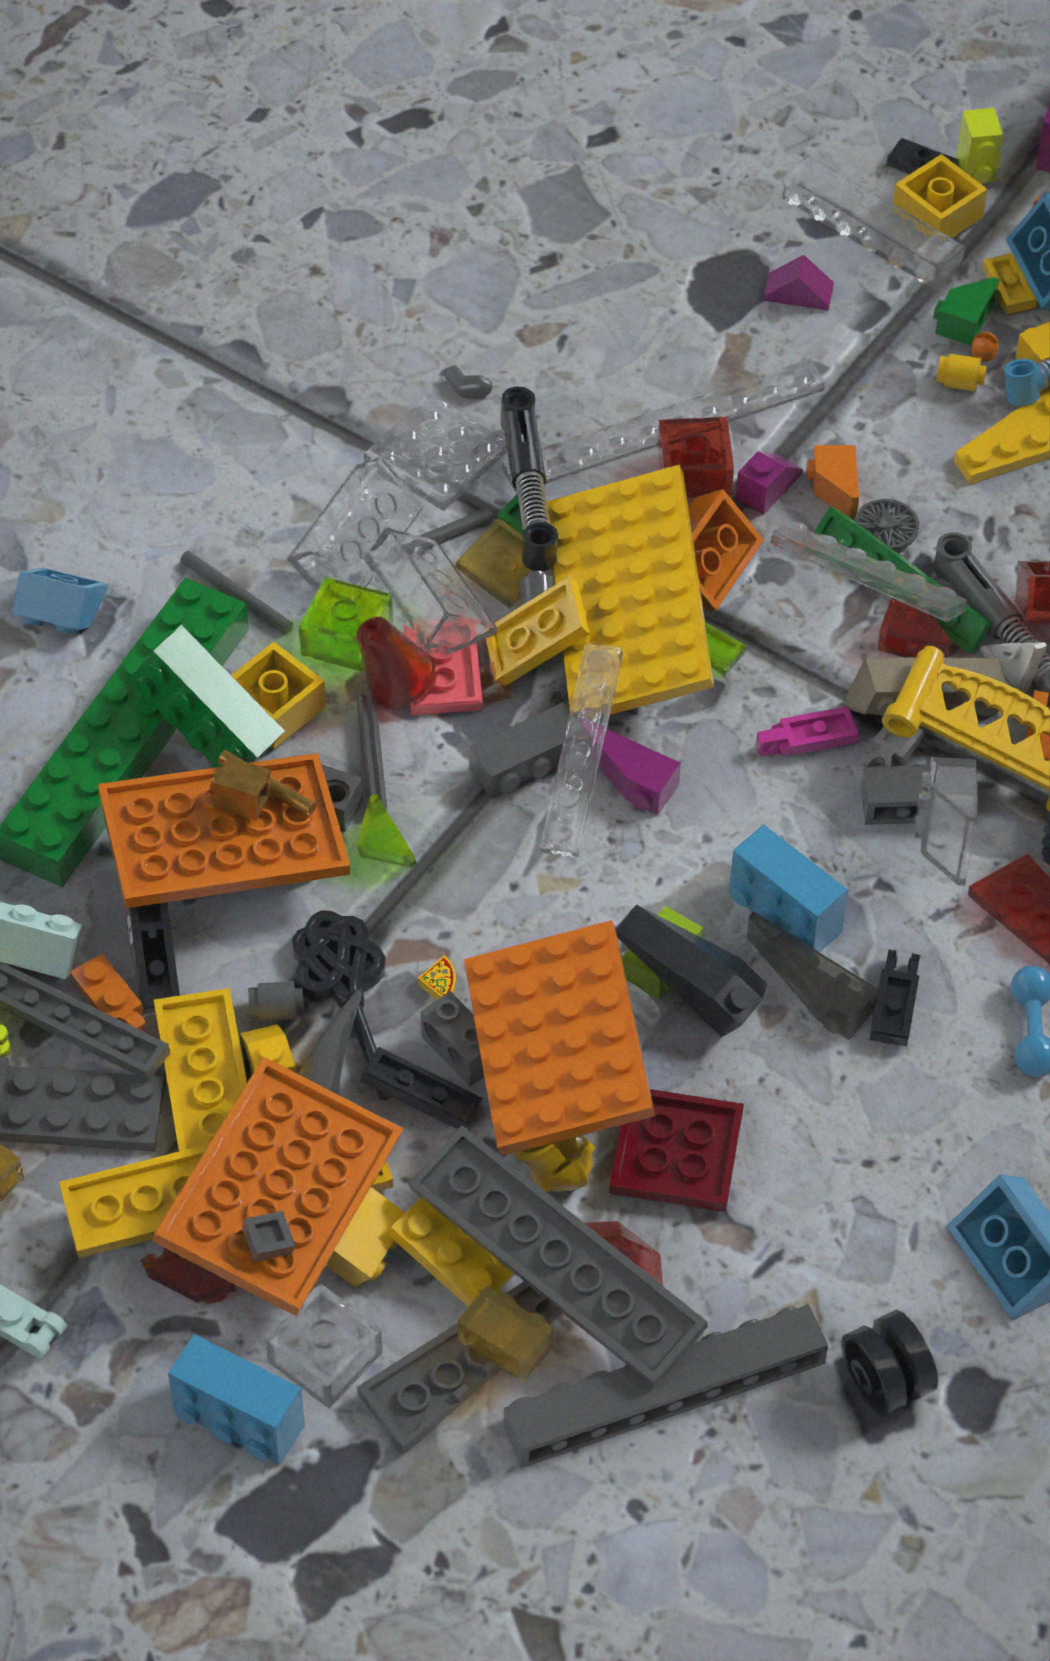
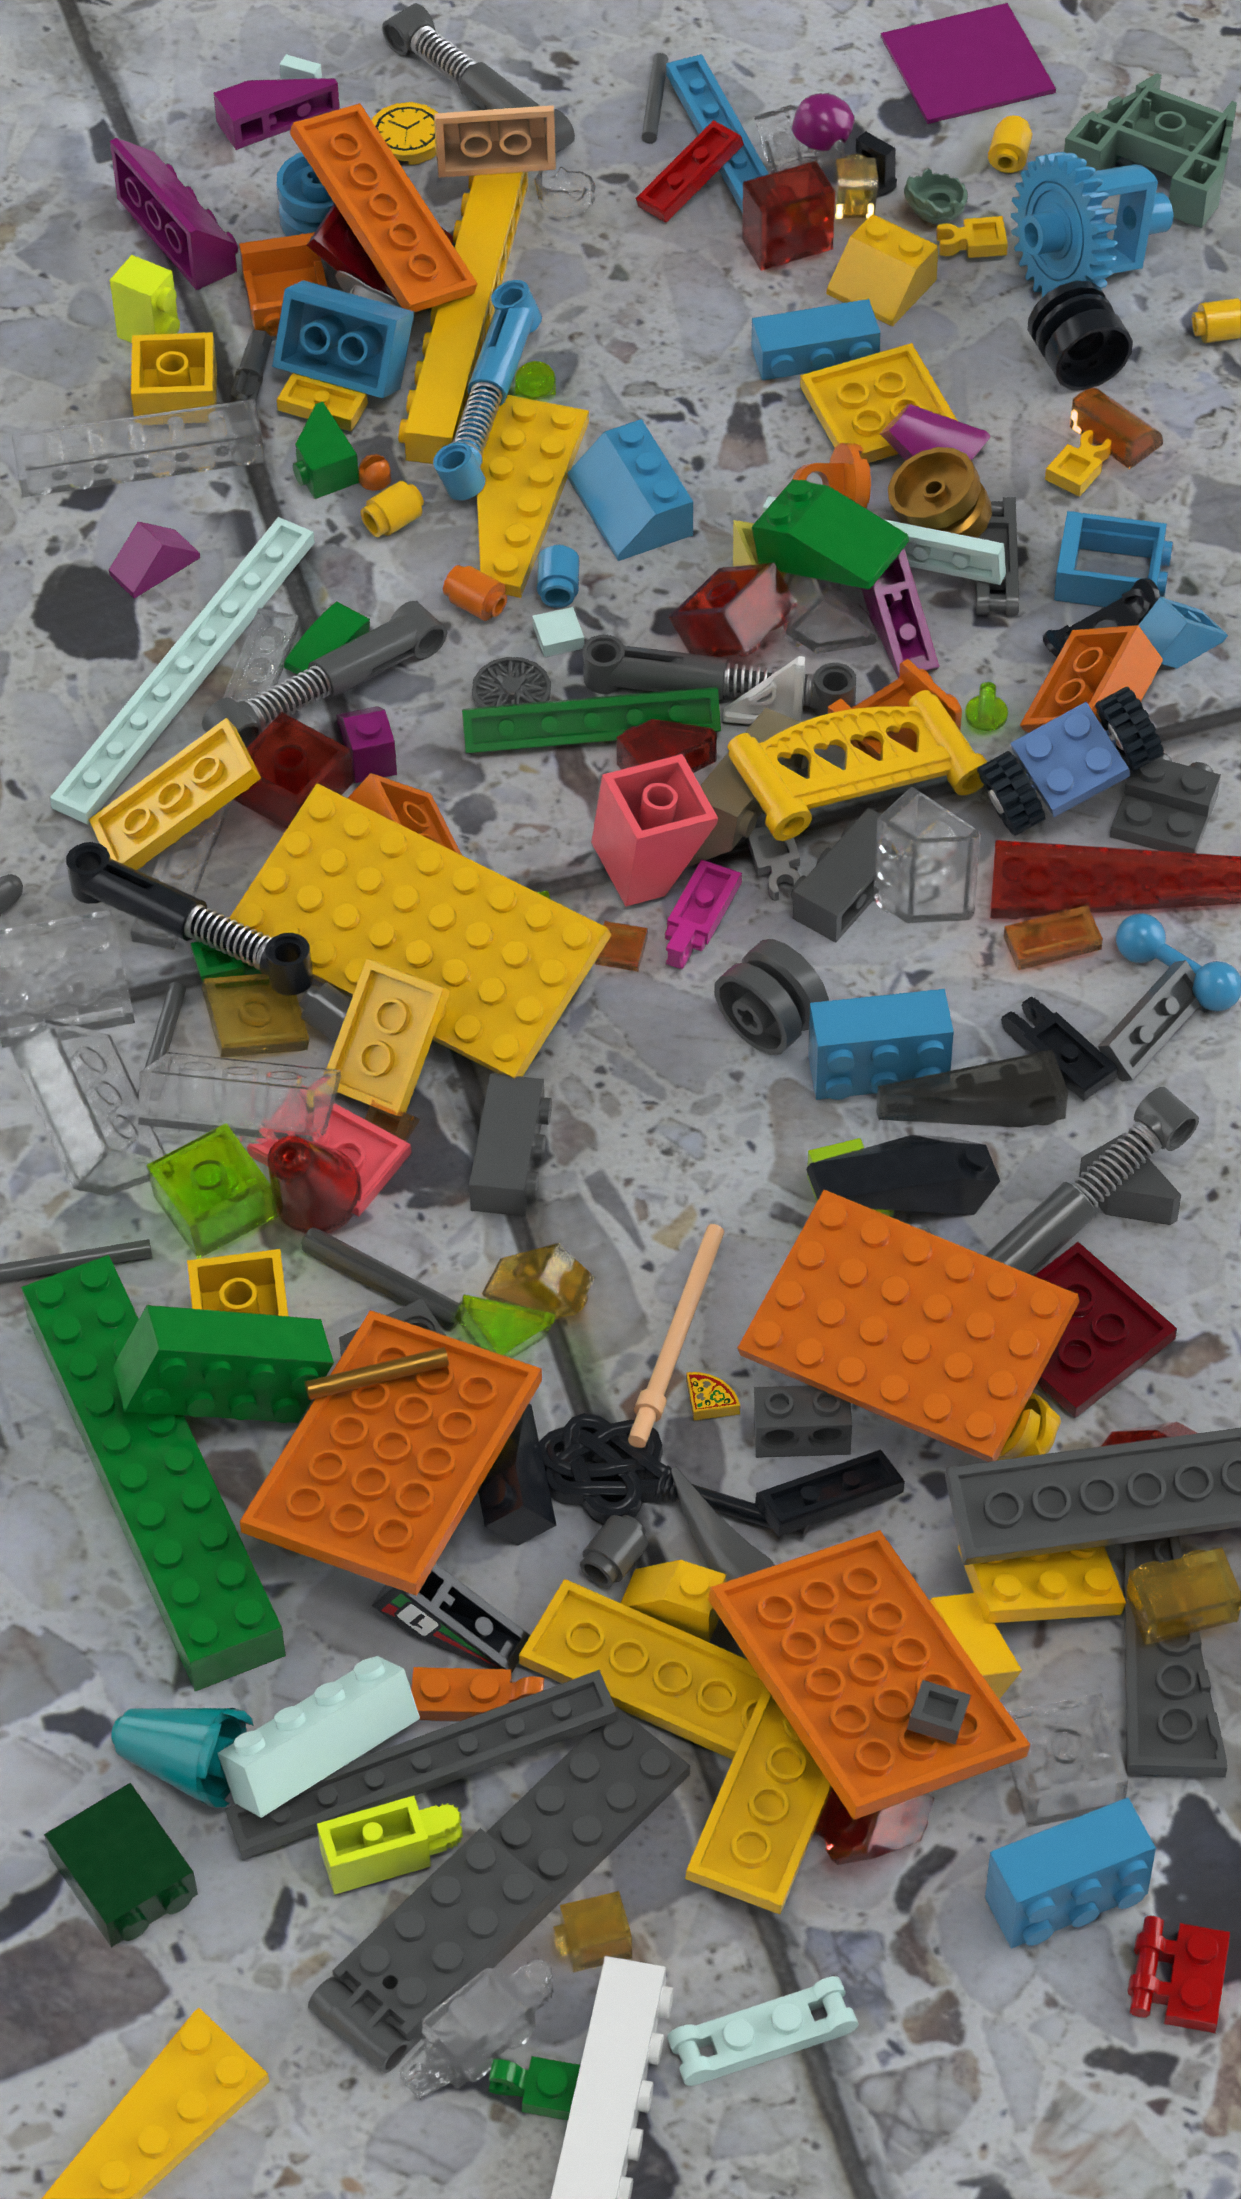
camera: 50 degrees left, 0 degrees up
(235, 1530) = (1196, 1976): none -> red plate
(241, 788) = (378, 1393): pearl gold brick -> none
(272, 916) = (516, 1489): none -> black slope
(398, 948) = (652, 1400): none -> light nougat bar
(438, 837) = (542, 1281): none -> clear yellow slope
(581, 750) = (567, 1094): clear plate -> none
(611, 411) = (176, 797): none -> yellow plate
(639, 772) = (610, 1075): magenta slope -> none
(728, 356) = (181, 671): none -> light aqua plate
(744, 712) = (624, 947): none -> clear orange tile
(762, 807) = (769, 996): none -> dark grey wheel
(814, 410) = (330, 631): none -> green slope
(819, 1101) = (1143, 1196): none -> dark grey slope
(827, 653) = (650, 826): none -> coral slope
(835, 477) = (423, 686): orange slope -> none
(860, 1081) = (1160, 1124): none -> dark grey piece
(873, 444) = (407, 634): none -> dark grey piece
(875, 574) = (552, 739): clear plate -> none
(910, 156) = (96, 363): black plate -> none
(939, 455) = (475, 592): none -> orange brick
(958, 518) = (558, 632): none -> light aqua tile
(967, 1035) = (1151, 1021): none -> dark grey plate
(983, 937) = (1053, 937): none -> clear orange plate
(990, 235) = (250, 373): none -> dark grey piece
(998, 487) = (558, 575): none -> dark azure brick

